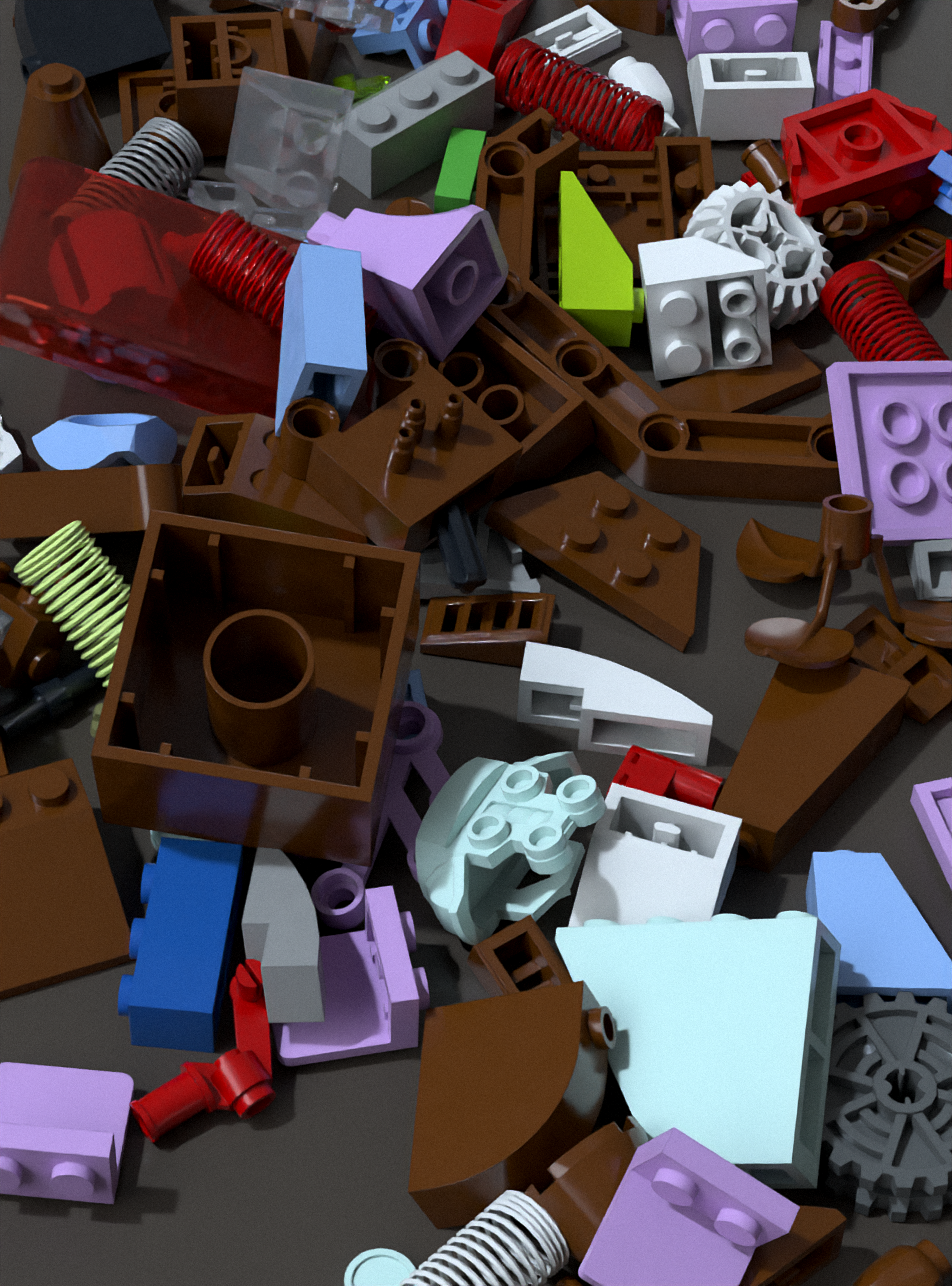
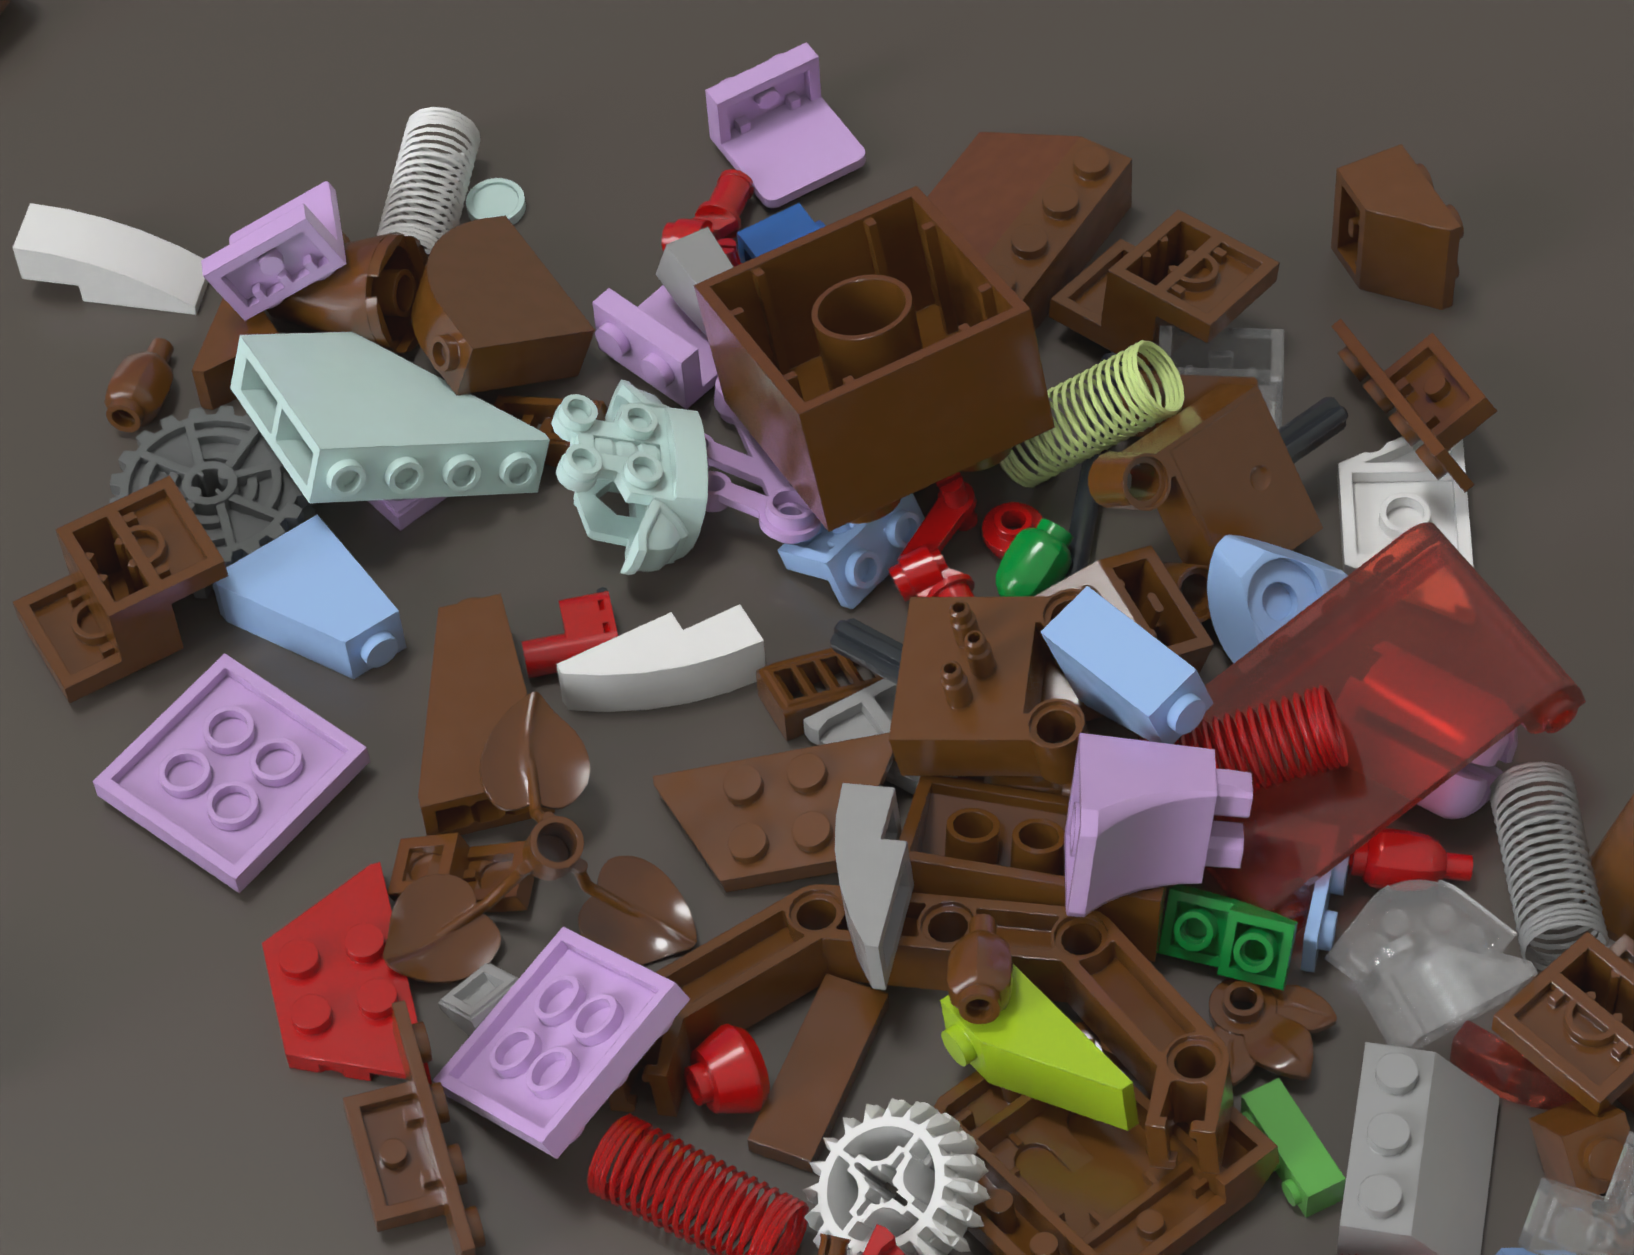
camera: 150 degrees right, 5 degrees up
(363, 85) = (1500, 1177): clear neon green piece -> none
(597, 285) = (980, 972): none -> reddish brown plant
(613, 394) = (872, 875): none -> light grey slope
(656, 860) = (518, 546): white slope -> none
(703, 307) = (902, 1048): white slope -> none
(803, 392) = (728, 1072): none -> red cone

